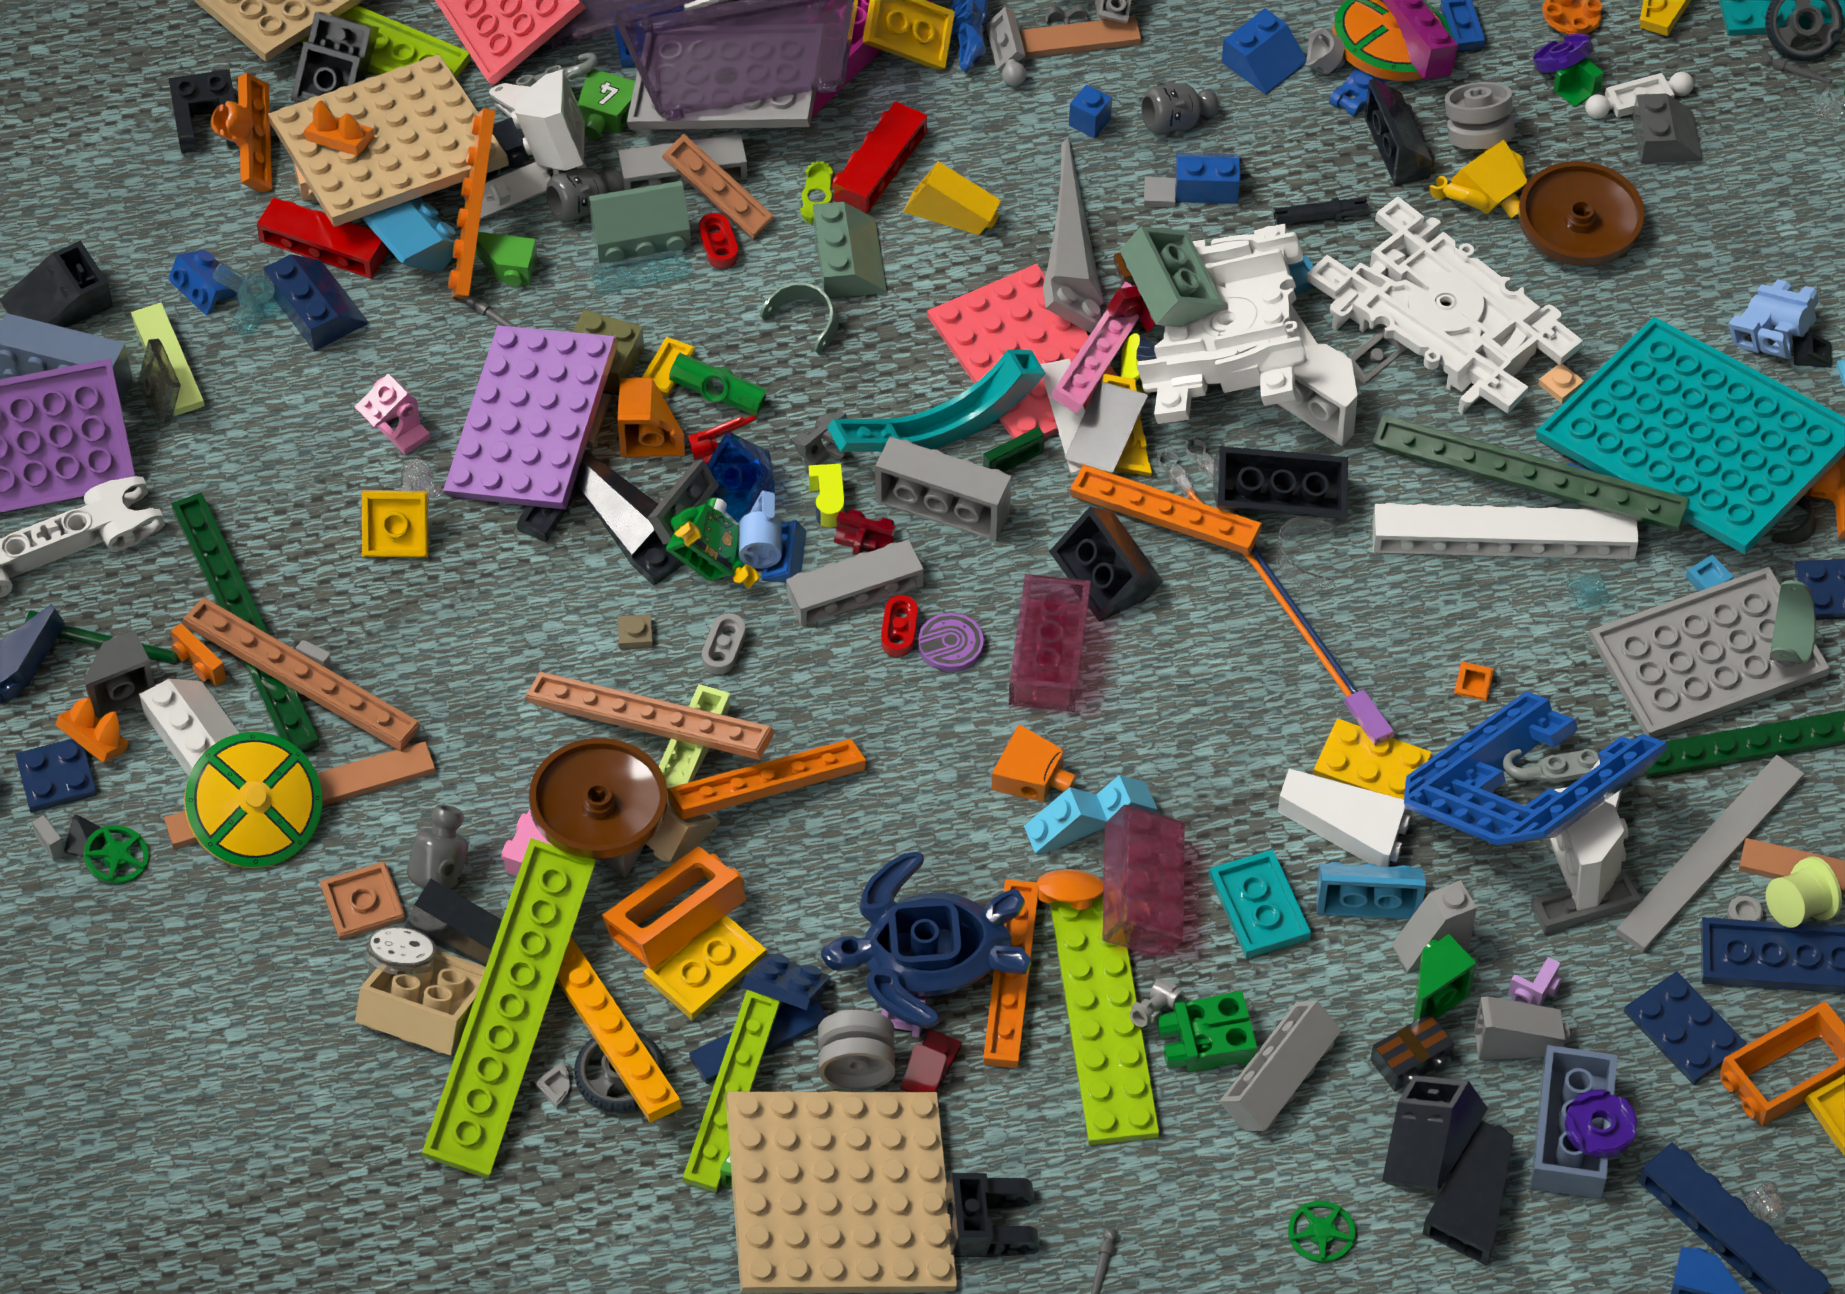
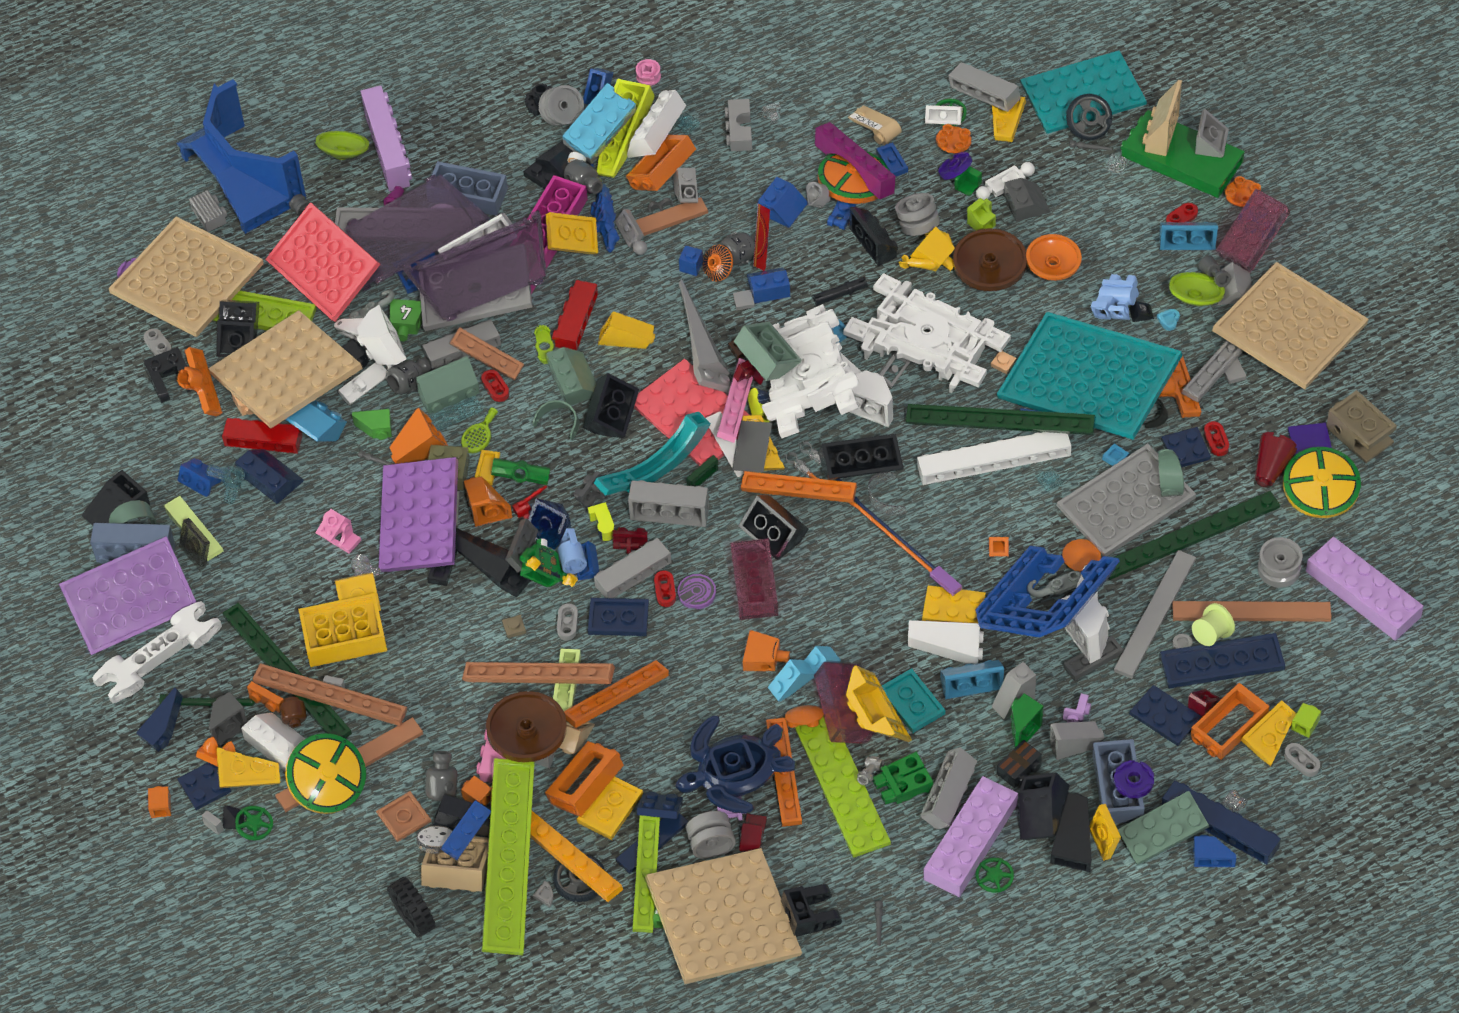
camera: 10 degrees left, 0 degrees up
(73, 307) = (132, 510): none -> sand green piece
(123, 765) = (243, 771): none -> yellow wing
(204, 56) = (156, 342): none -> light grey plate
(233, 688) = (293, 712): none -> reddish brown head
(323, 1053) = (411, 907): none -> black wheel
(337, 133) = (256, 371): orange tile -> none
(353, 574) = (342, 630): none -> yellow slope
(450, 946) = (466, 830): none -> blue plate
(469, 217) = (347, 387): orange plate -> none
(490, 887) = (476, 790): none -> orange brick
(563, 294) = (415, 439): none -> orange slope
(701, 282) = (489, 417): none -> lime piece
(809, 654) = (618, 617): none -> dark blue plate
(894, 314) = (611, 407): none -> black slope
(1133, 124) = (723, 263): none -> dish
(1189, 896) = (873, 705): none -> yellow slope
(1215, 99) = (761, 239): none -> red sticker
(1296, 1156) = (970, 836): none -> lavender brick
(1527, 1203) = (1104, 832): none -> yellow tile
(1585, 138) = (980, 215): none -> lime brick
(1605, 722) = (1080, 553): none -> orange dish
(1631, 1219) = (1163, 828): none -> sand green plate
(1688, 220) = (1056, 250): none -> orange dish
(1754, 1018) = (1202, 701): none -> dark red slope

